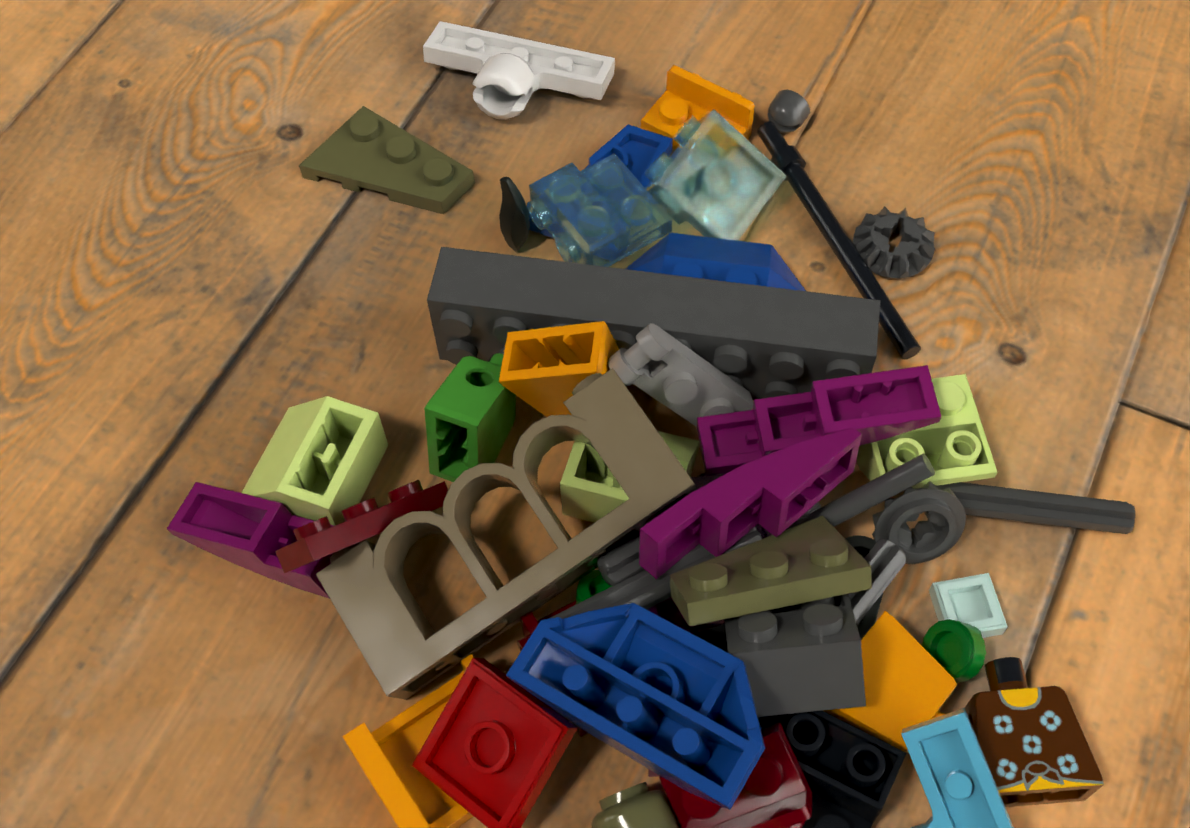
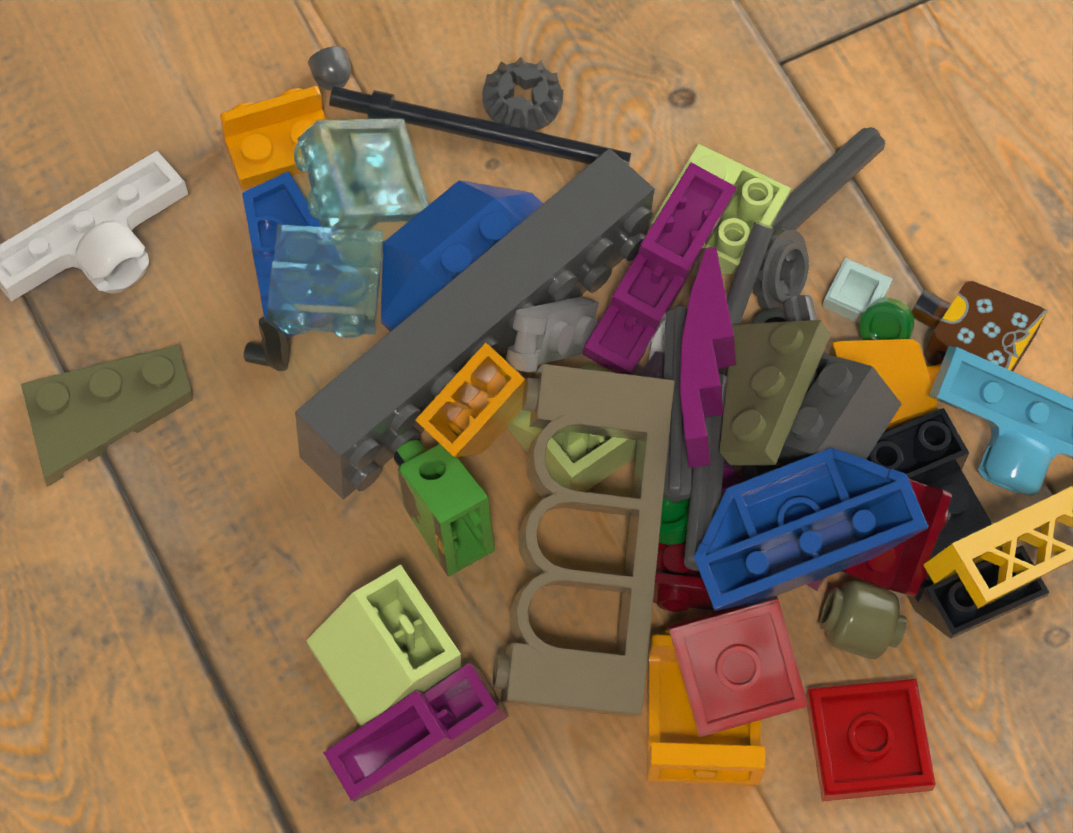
camera: 60 degrees left, 5 degrees up
(361, 522) = (491, 639): dark red plate -> none

